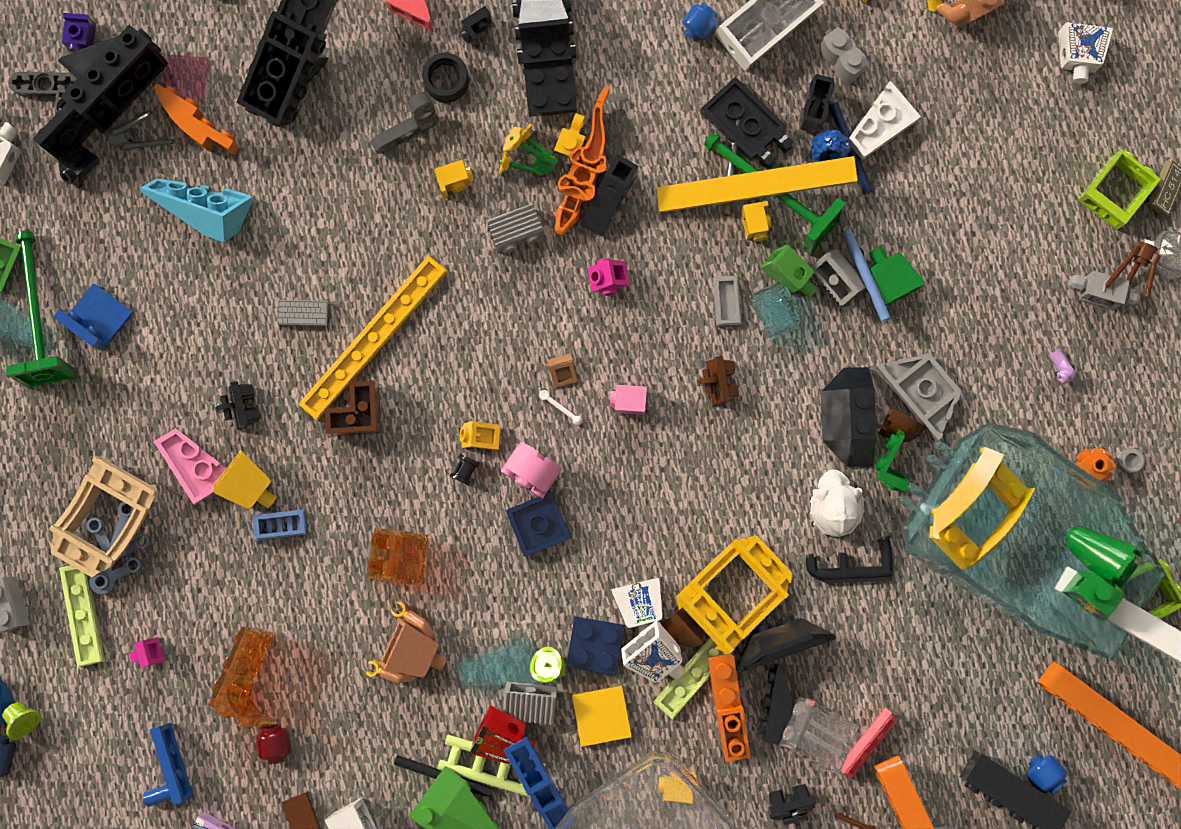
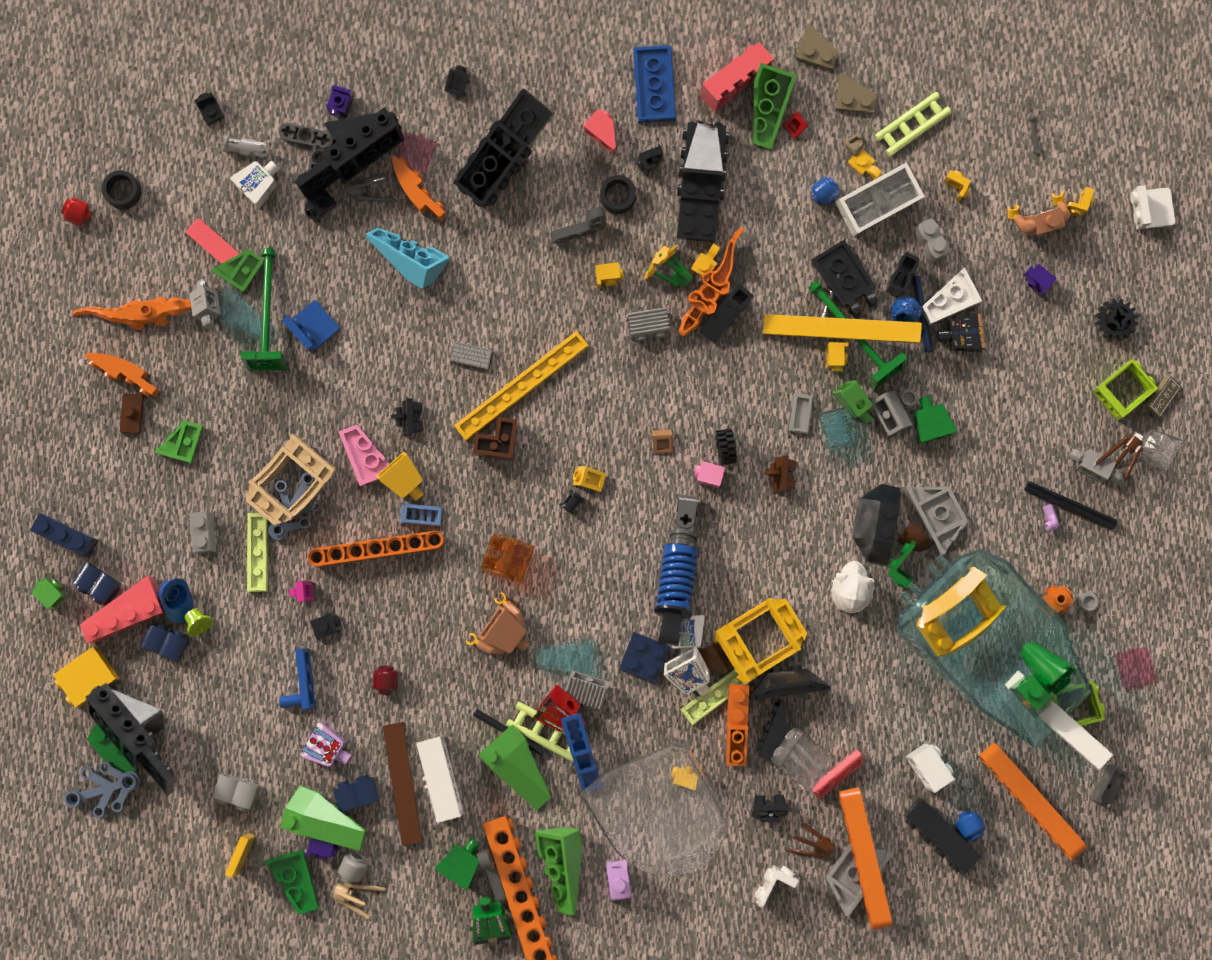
camera: 10 degrees right, 0 degrees up
(185, 689) = (325, 625): none -> black bracket
(218, 580) = (366, 546): none -> orange beam
(234, 688) = (372, 617): clear orange bracket -> none
(531, 469) = (623, 512): bright pink brick -> none
(538, 524) = (620, 555): dark blue plate -> none
(544, 395) = (644, 457): white hinge -> none
(547, 665) = (605, 664): piece -> none
(601, 715) = (638, 711): yellow tile -> none
(603, 276) = (709, 375): dark pink brick -> none
(615, 532) = (678, 573): none -> piece
(643, 360) = (726, 446): none -> black tyre
(854, 574) = (855, 644): black piece -> none
(866, 275) = (912, 416): medium blue bar -> none
(908, 161) = (964, 334): none -> torso
(982, 711) = (930, 767): none -> white brick
(985, 76) = (1039, 279): none -> dark purple brick
(1083, 49) = (1121, 273): white torso -> none
(1083, 345) = (1070, 505): none -> black axle
(1087, 116) = (1117, 327): none -> black gear

